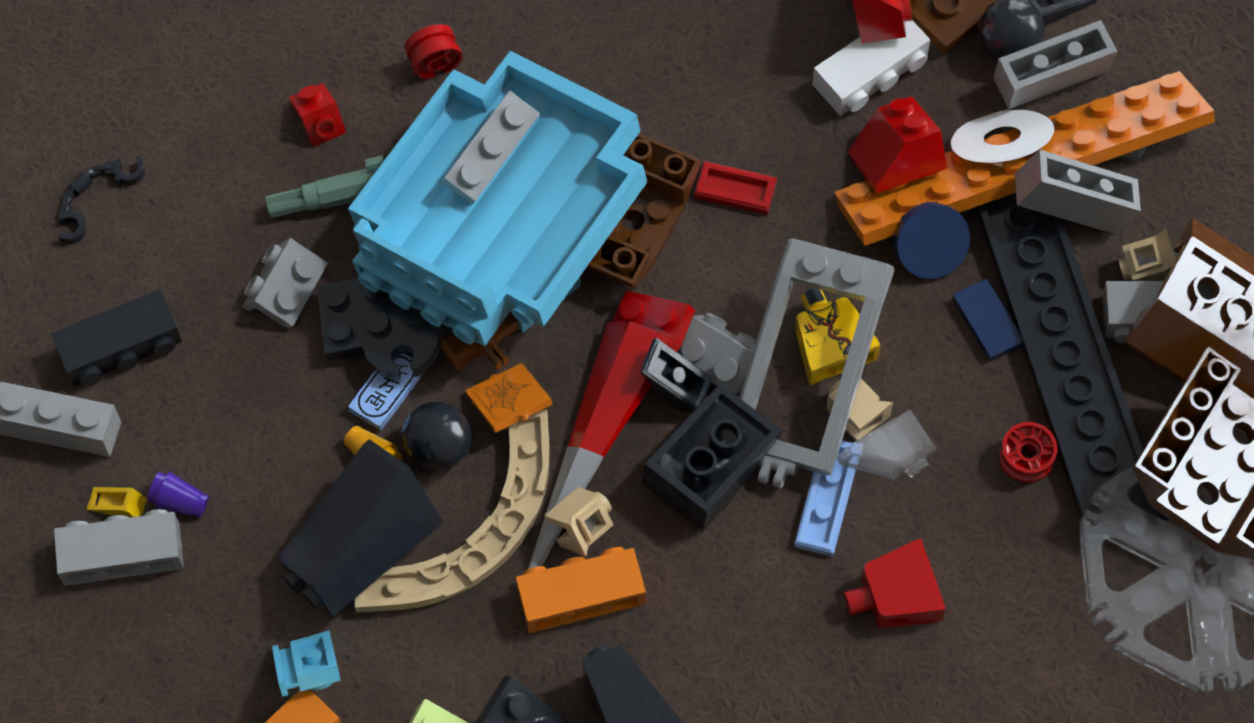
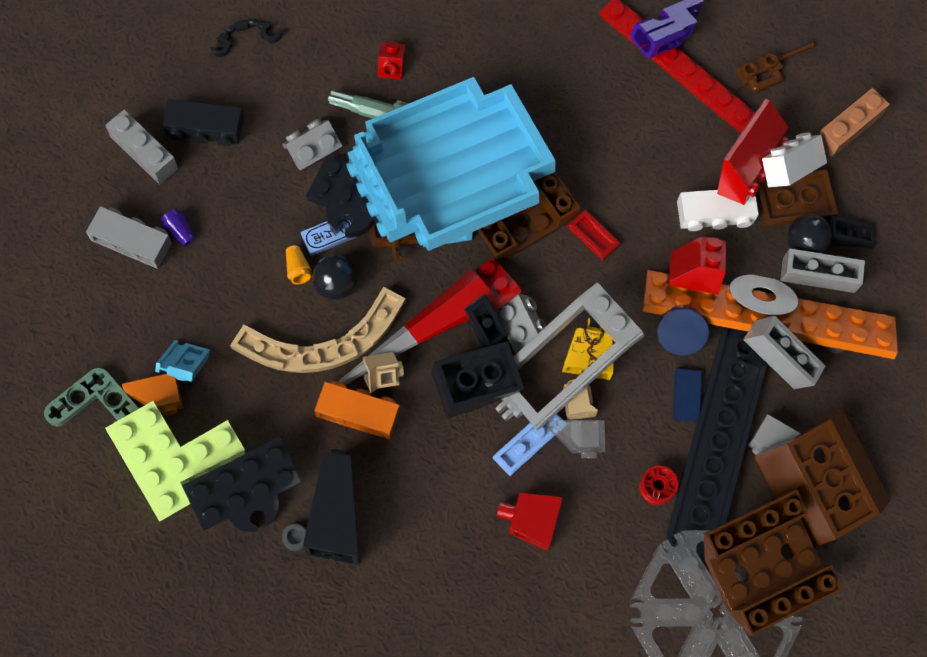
camera: 25 degrees right, 5 degrees up
(117, 501) = (147, 212): yellow piece -> none
(358, 530) = (255, 305): black slope -> none
(433, 50) = (475, 60): red wheel -> none
(490, 147) = (465, 132): light grey plate -> none
(508, 397) = (389, 279): orange piece -> none
(1148, 259) = (801, 415): tan window -> none

